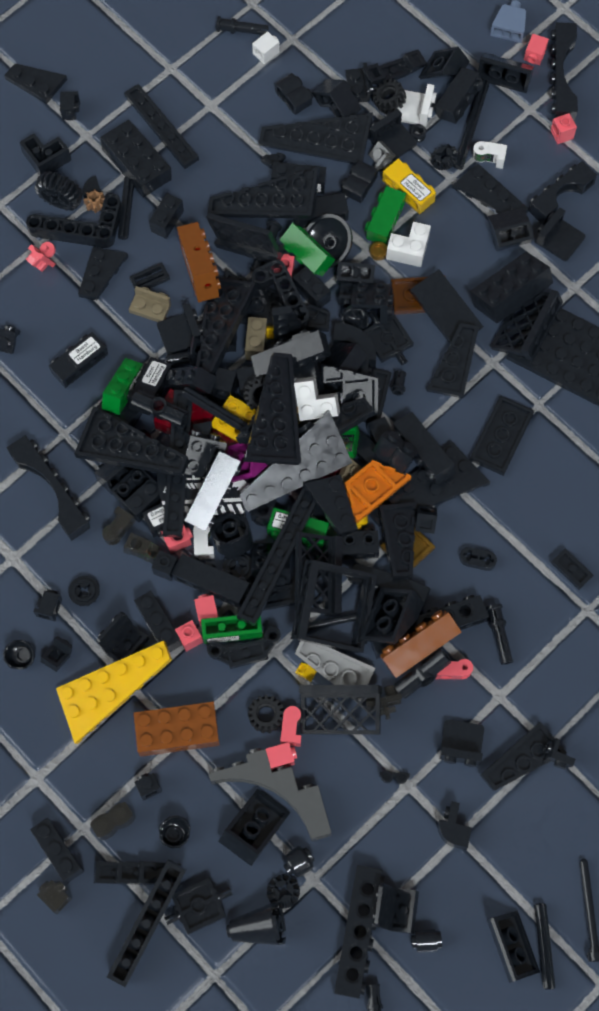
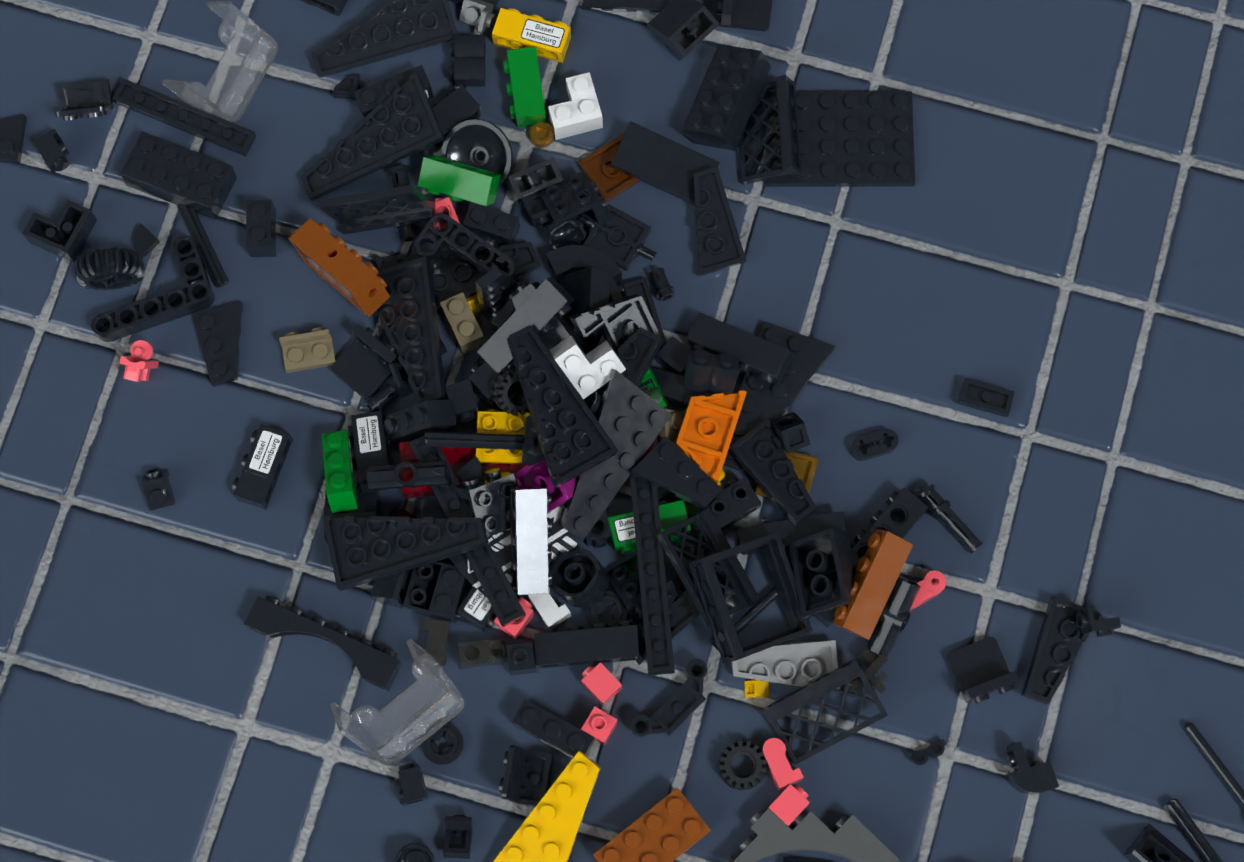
camera: 30 degrees left, 5 degrees up
(71, 563) = (407, 719): none -> clear windscreen
(94, 201) = (165, 262): medium nougat gear -> none
(107, 84) = (85, 98): none -> black bracket
(151, 280) = (278, 311): black tile -> none
(211, 117) = (239, 70): none -> clear windscreen
(229, 629) = (641, 693): green brick -> none
(501, 435) = (816, 282): black tile -> none

